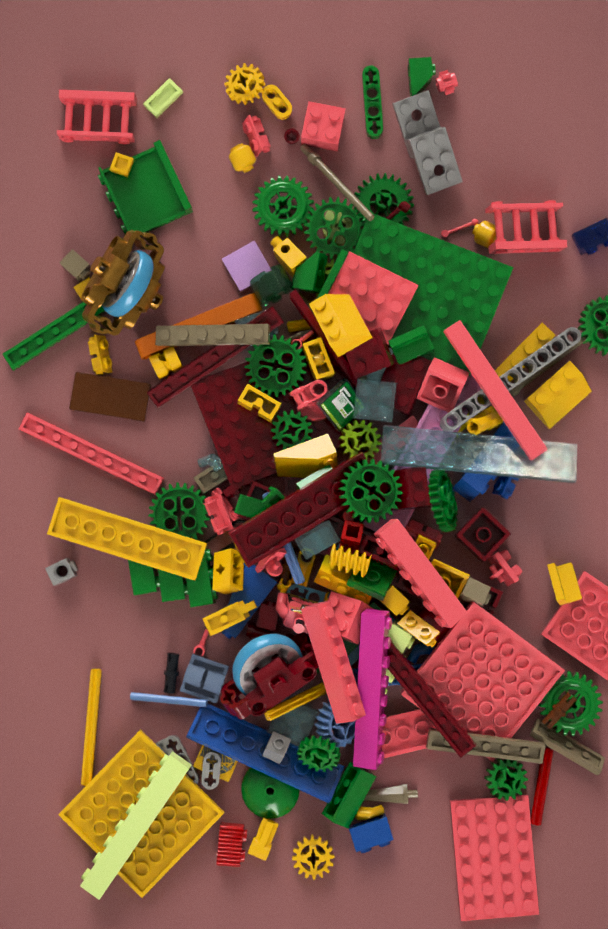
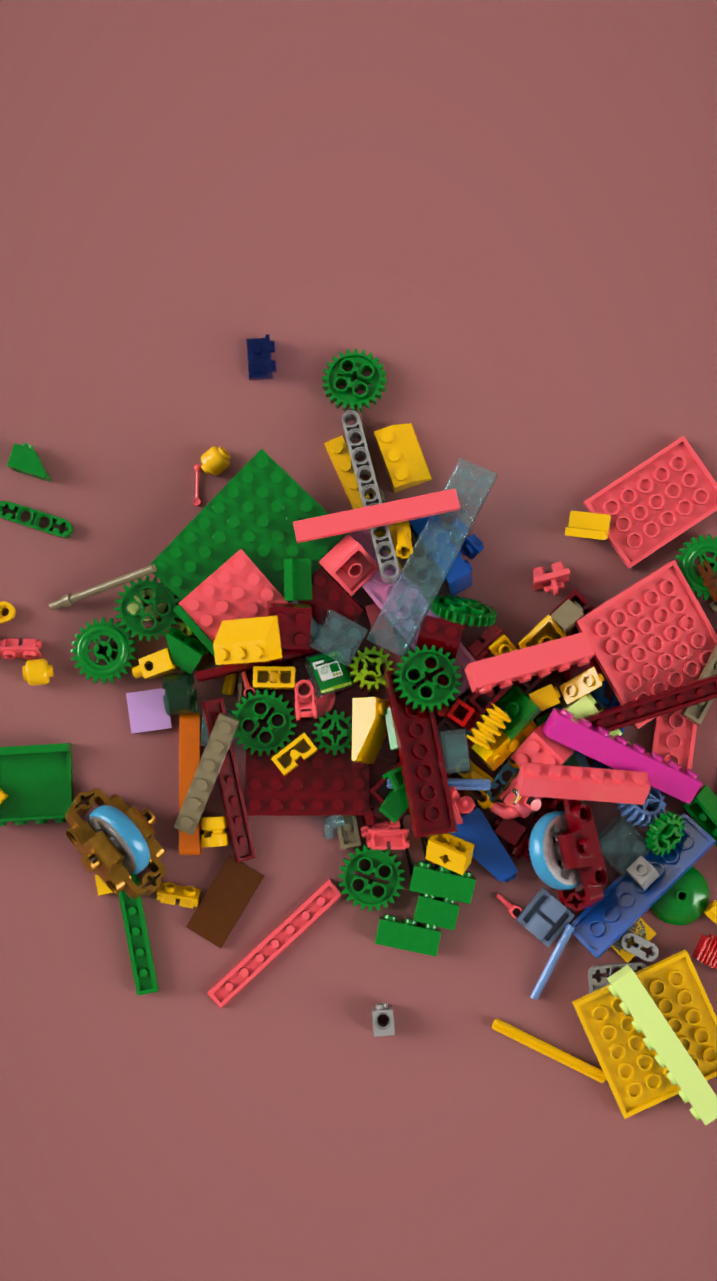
camera: 65 degrees left, 0 degrees up
(76, 265) = (78, 884): dark tan brick -> none
(127, 538) = (377, 941): yellow plate -> none
(171, 673) = (527, 948): black pin -> none
(228, 616) = (495, 869): yellow hinge -> none
(288, 139) = (38, 617): dark red hinge -> none
(295, 702) = (605, 836): yellow axle -> none
(323, 126) = (39, 578): coral brick -> none
(375, 187) = (130, 533): green gear -> none
(403, 206) = (155, 530): dark red hand -> none
(427, 142) = (99, 482): light grey bracket -> none
(446, 82) = (46, 438): coral gear -> none
(482, 534) = (510, 585): dark red brick -> none
(518, 244) = (238, 433): coral fence -> none

